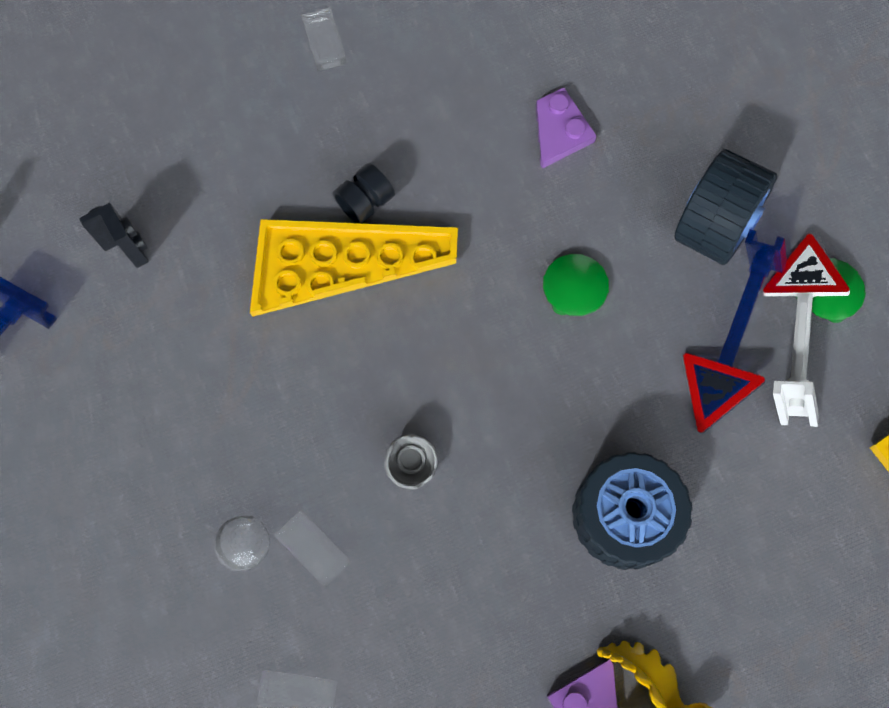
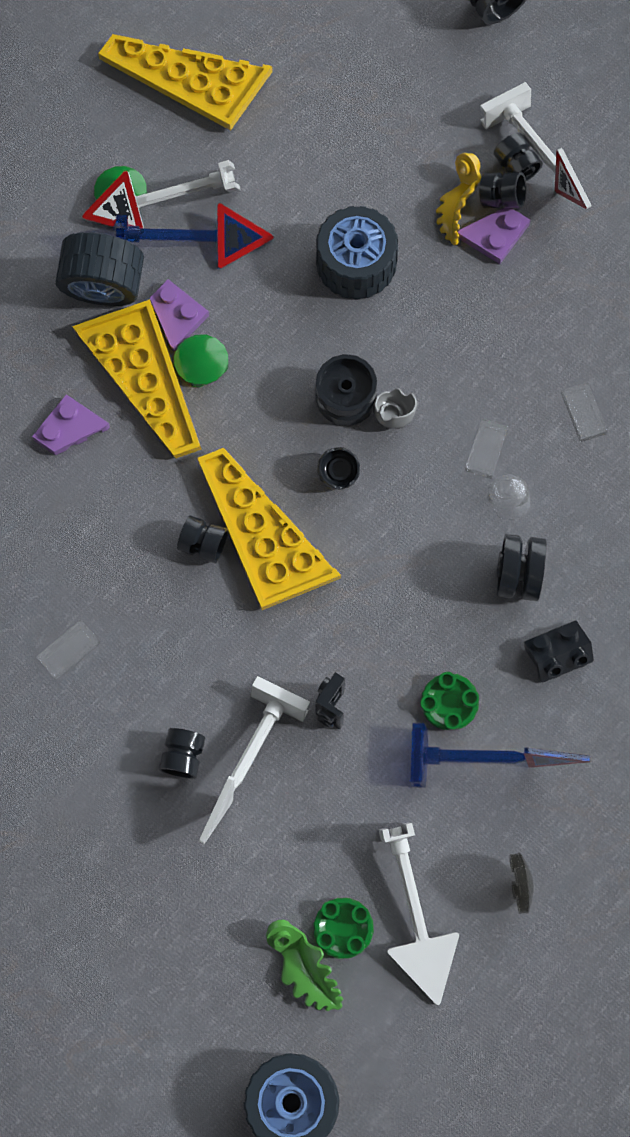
camera: 115 degrees left, 0 degrees up
(38, 504) = (560, 651): none -> black bracket
(56, 361) = (450, 701): none -> green dish
(135, 507) = (516, 567): none -> black wheel
(154, 193) = (278, 702): none -> white piece
(159, 86) = (182, 752): none -> black wheel
(369, 363) = (338, 468): none -> black hair
(468, 397) = (346, 389): none -> black wheel
(594, 218) = (138, 361): none -> yellow wing
(645, 284) = (177, 313): none -> medium lavender wing

